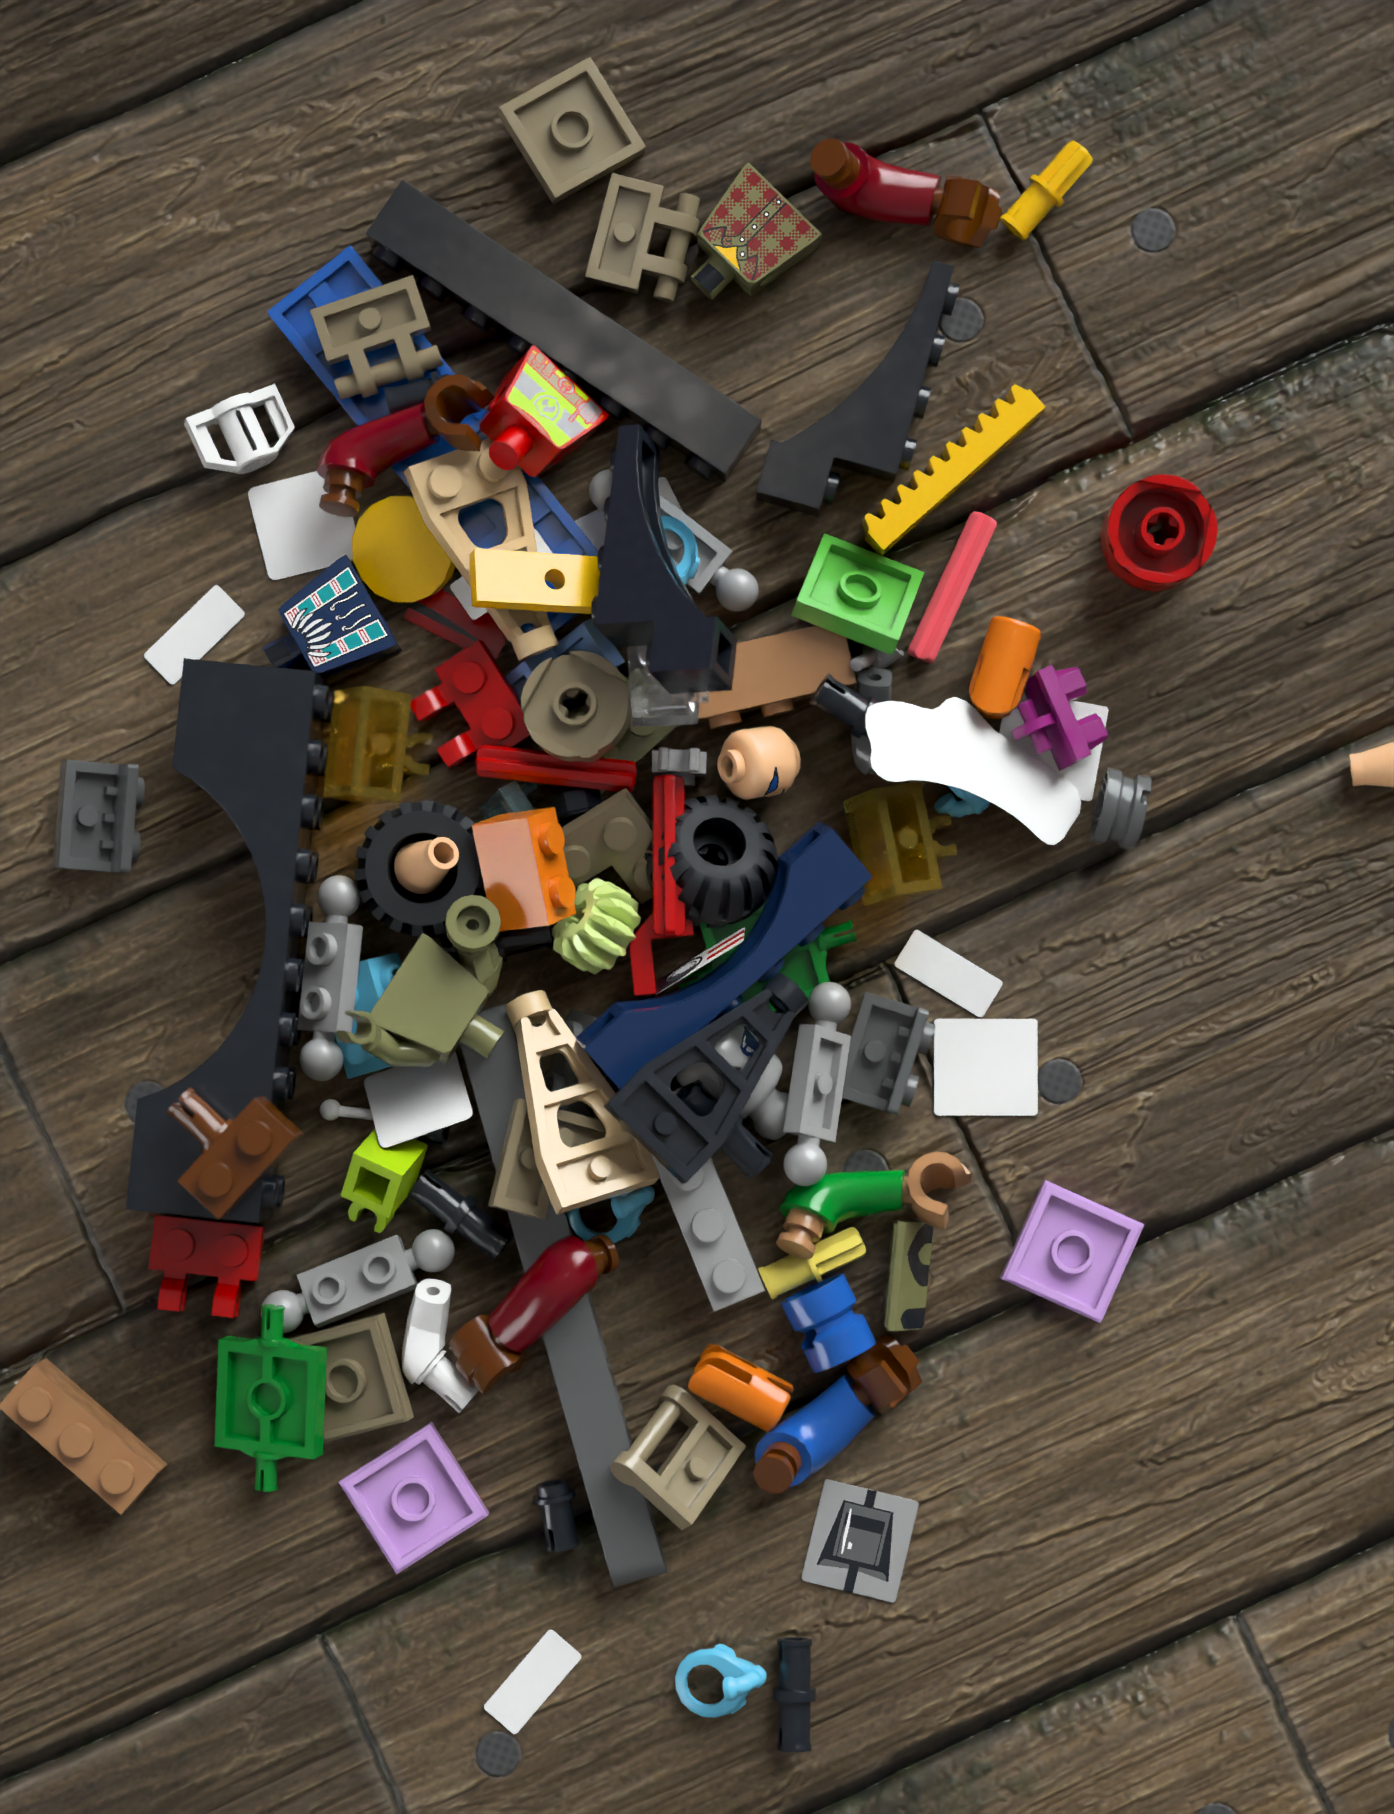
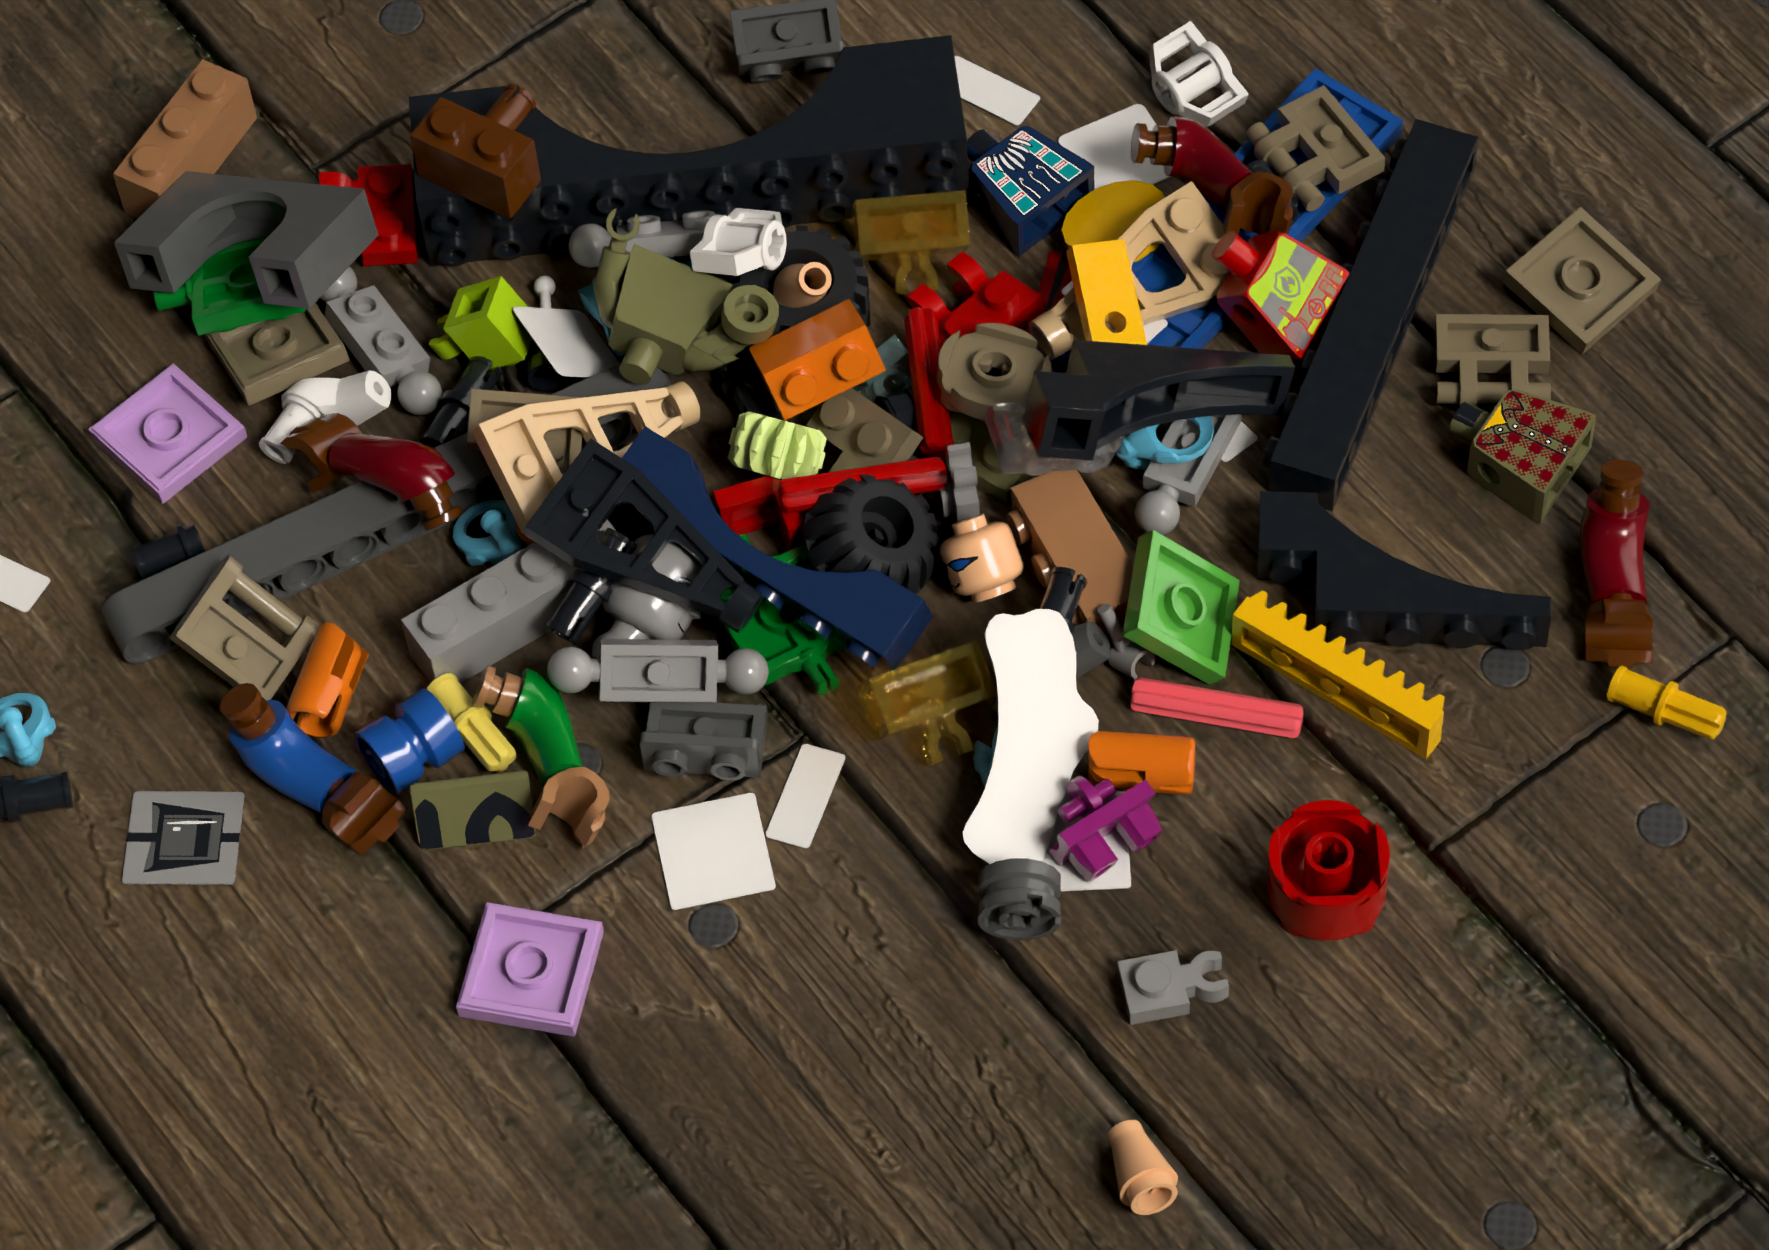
camera: 80 degrees right, 30 degrees down
(182, 1423) = (308, 229): none -> dark grey arch
(381, 914) = (740, 243): none -> white piece
(700, 960) = (759, 537): sticker -> none
(1217, 707) = (1161, 987): none -> light grey plate

